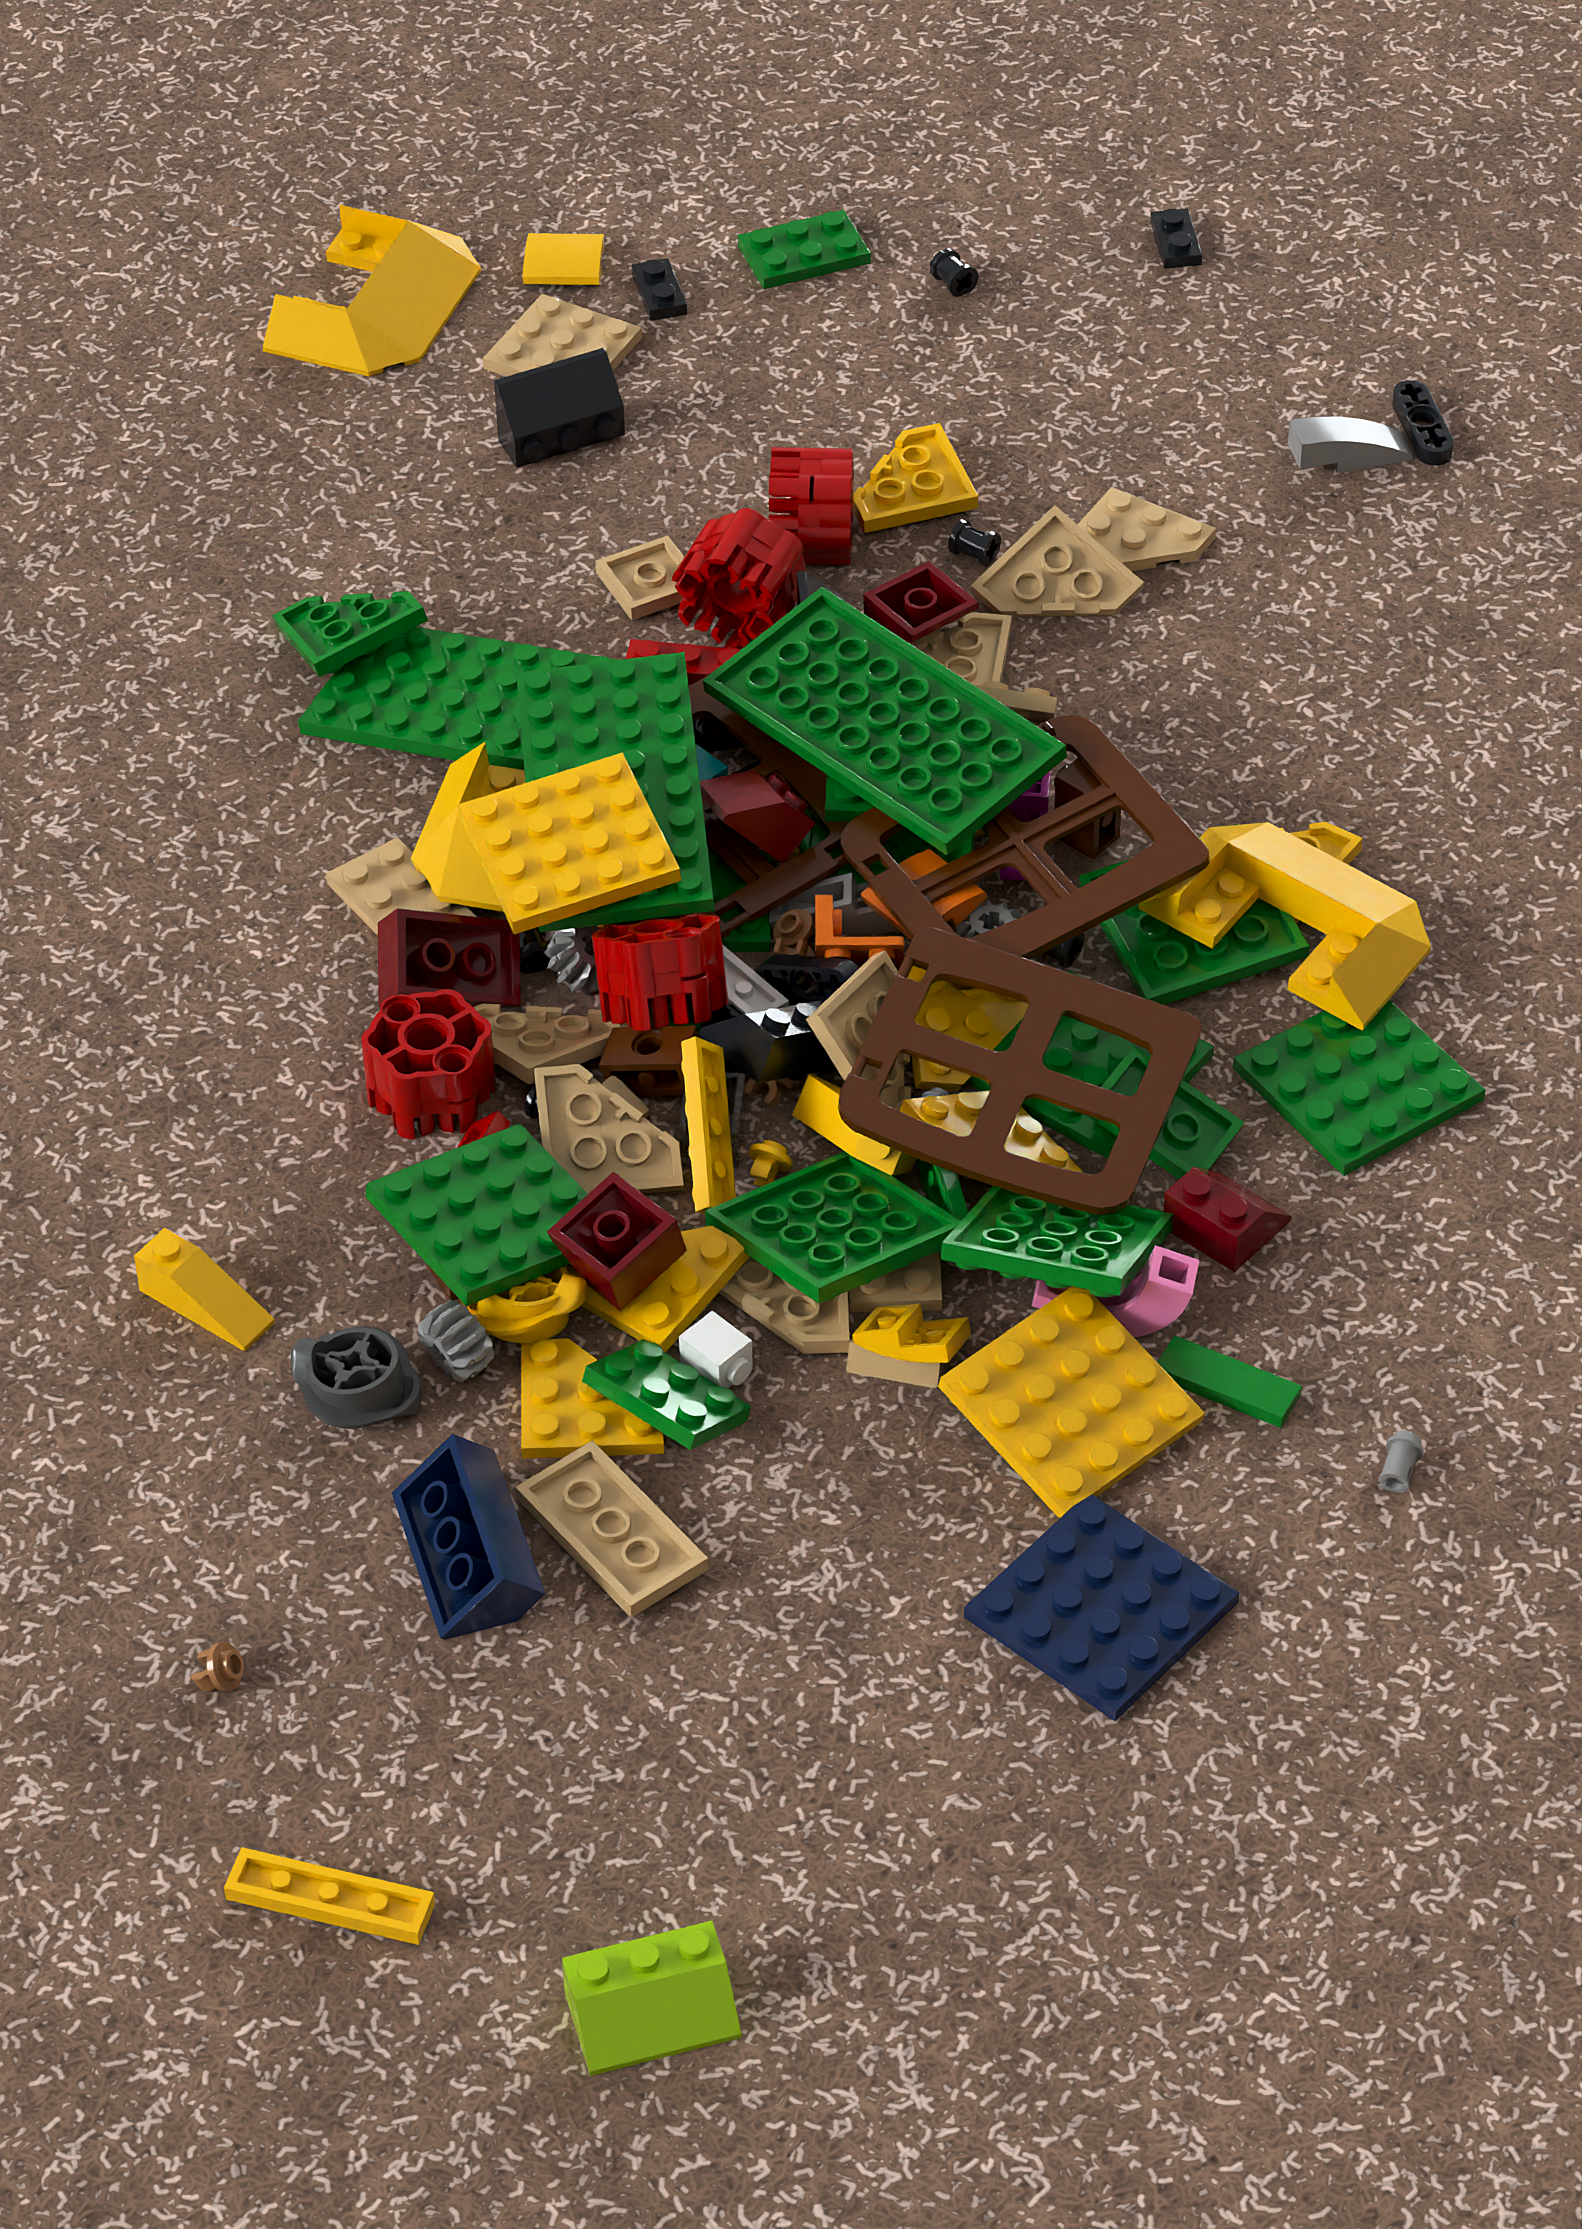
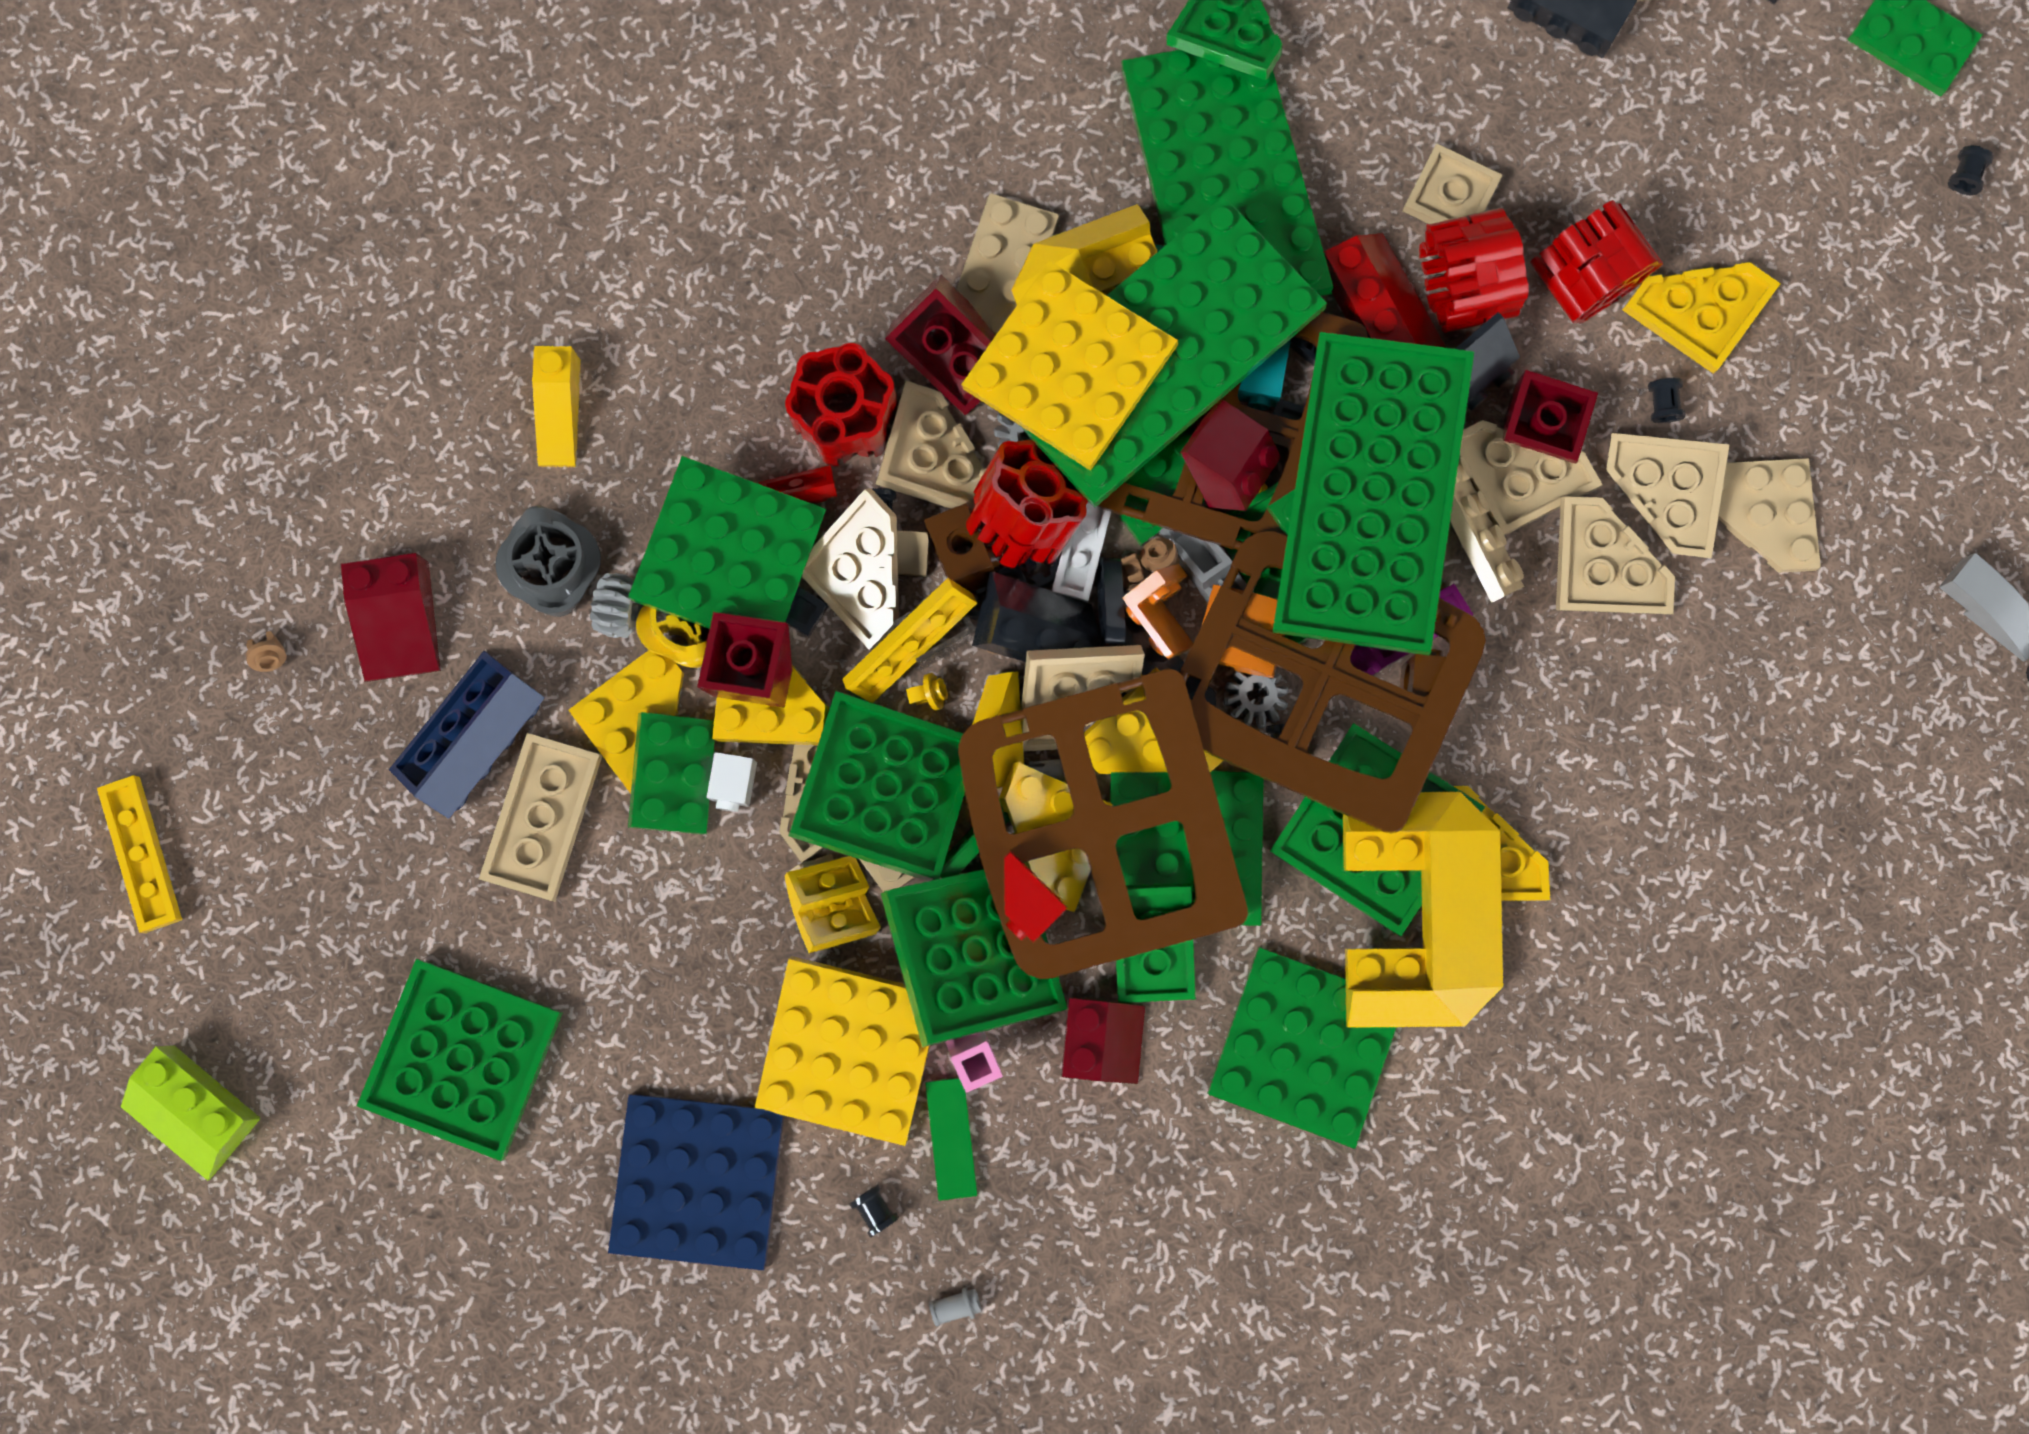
camera: 55 degrees right, 35 degrees up
(284, 1536) = (391, 616): none -> dark red slope
(804, 1730) = (459, 1059): none -> green plate
(1040, 1145) = (1028, 900): none -> red slope
(1086, 651) = (1607, 564): none -> tan plate
(1250, 1471) = (874, 1210): none -> black bush

